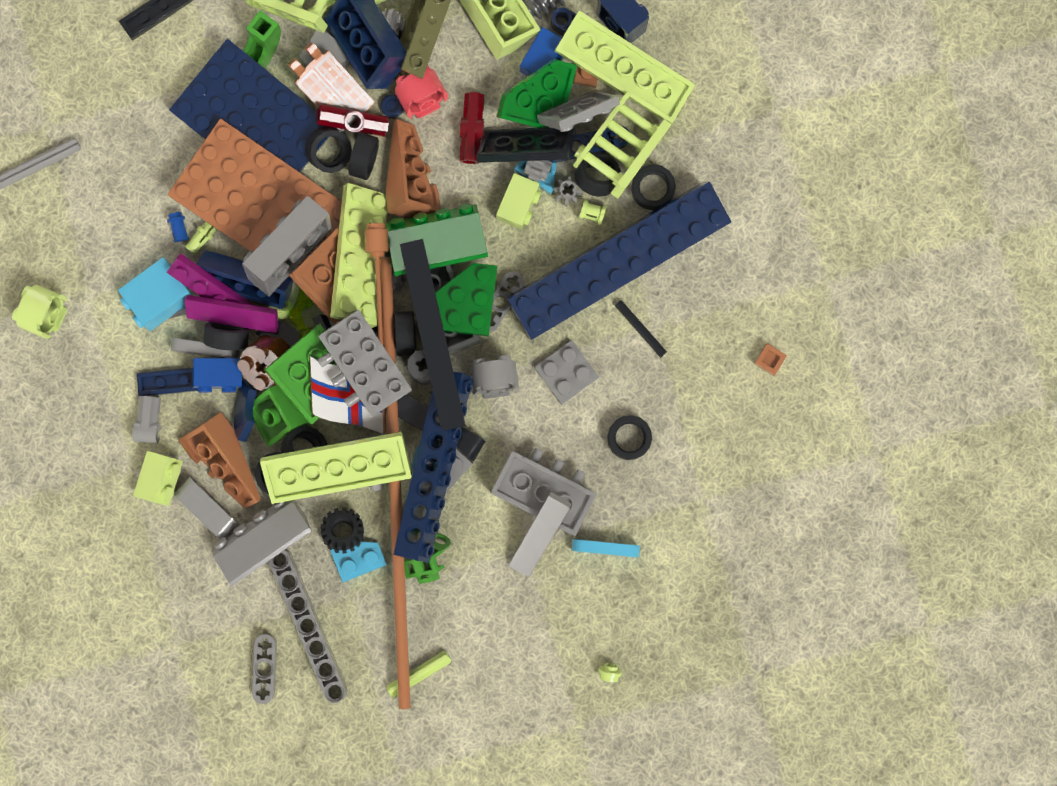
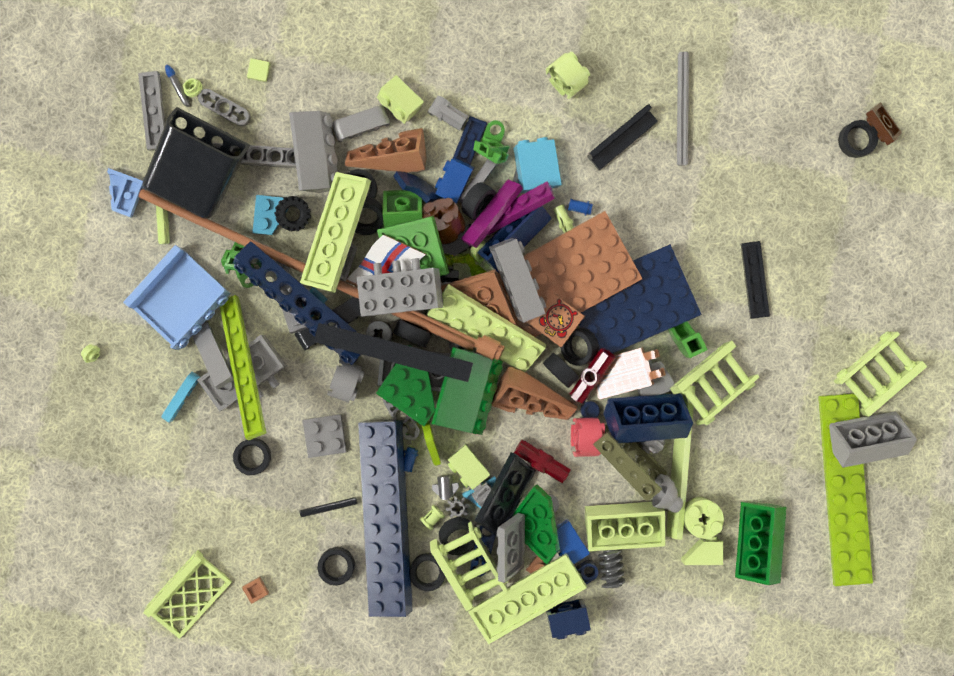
camera: 120 degrees right, 5 degrees up
(80, 220) = (622, 137): none -> black fence
(159, 356) = (491, 144): none -> bright green piece
(204, 652) = (258, 70): none -> yellowish green tile
(257, 719) = (192, 87): none -> yellowish green plate
(257, 747) = (177, 86): none -> flat silver piece
(307, 745) = (152, 107): none -> light grey plate
(311, 179) = (558, 321): none -> nougat tile
(347, 662) = (192, 168): none -> black piece
(414, 729) = (124, 192): none -> light blue wing
(499, 607) = (177, 297): none -> light blue panel
(513, 251) = (431, 444): none -> lime tile
(534, 491) = (242, 369): none -> lime tile
(542, 268) = (410, 457): none -> blue pin
(553, 215) = (445, 488): none -> flat silver piece
(698, 269) = (336, 580): none -> black tyre
(811, 449) = (178, 581): none -> yellowish green fence

